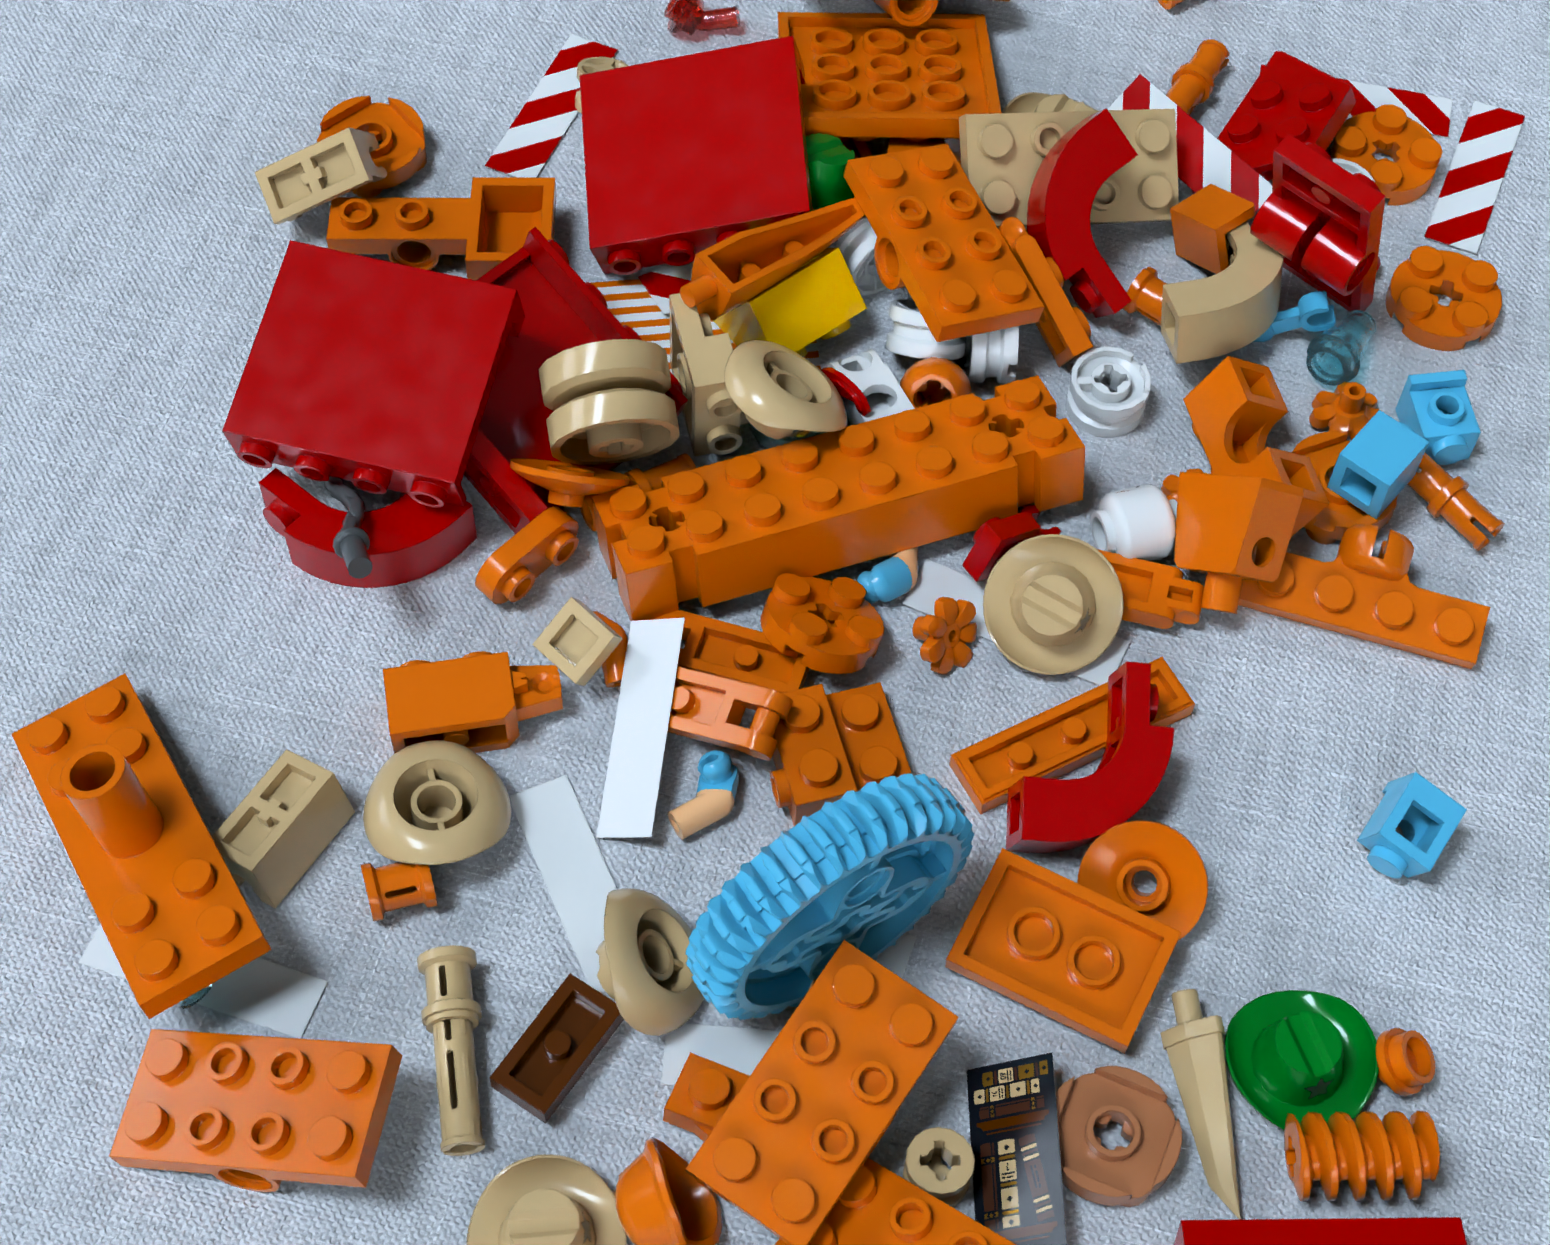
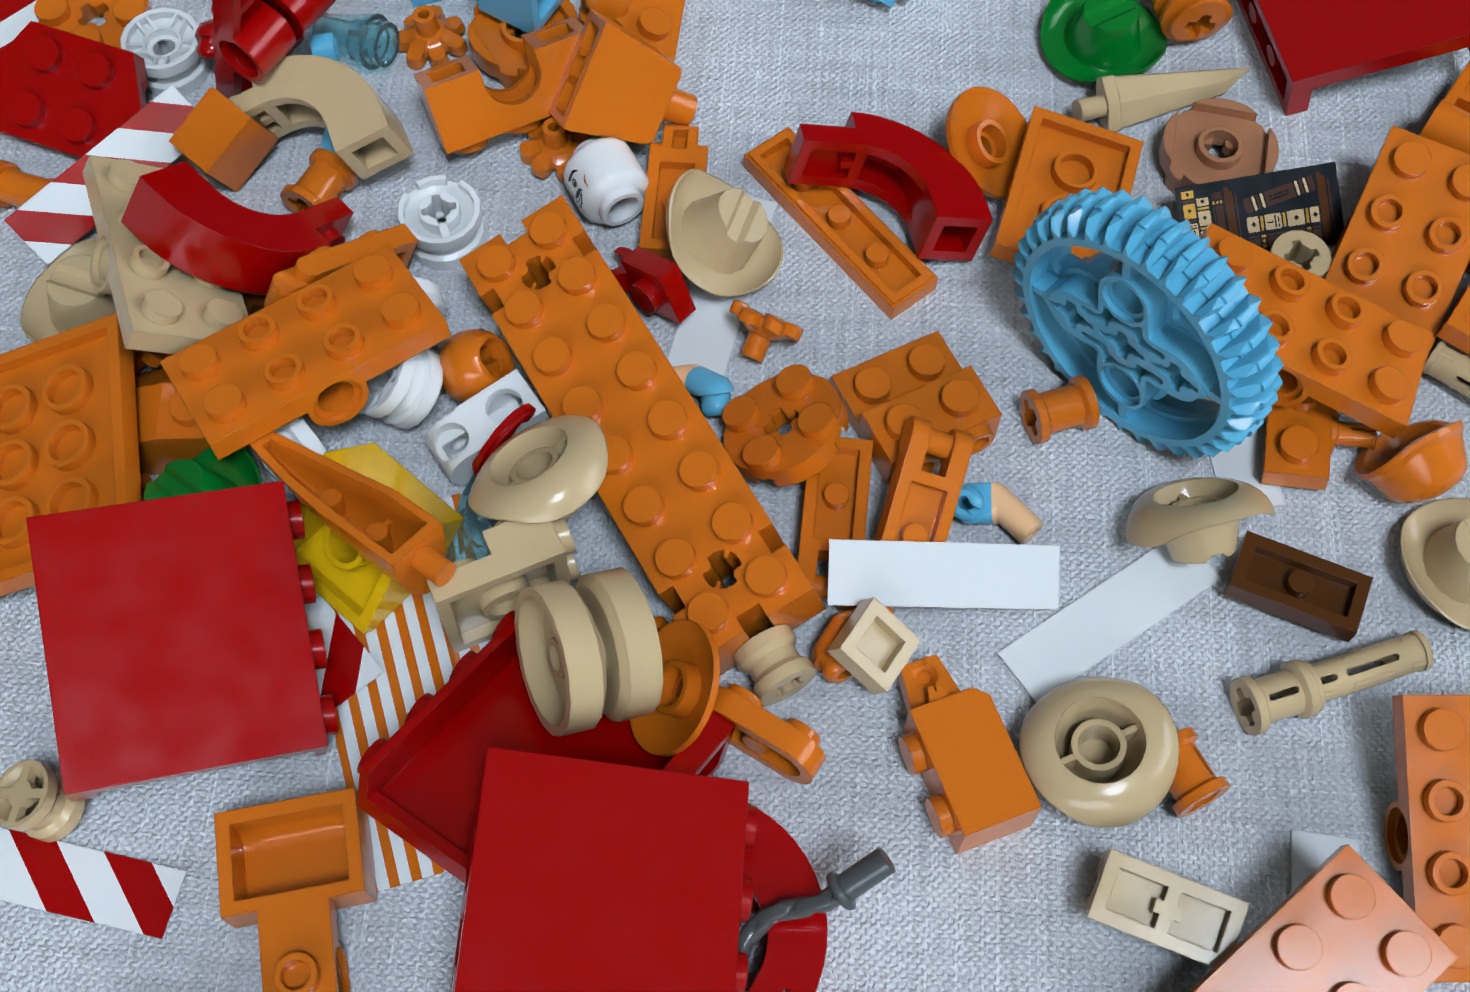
camera: 100 degrees left, 5 degrees up
(590, 575) = (774, 664): none -> tan wheel

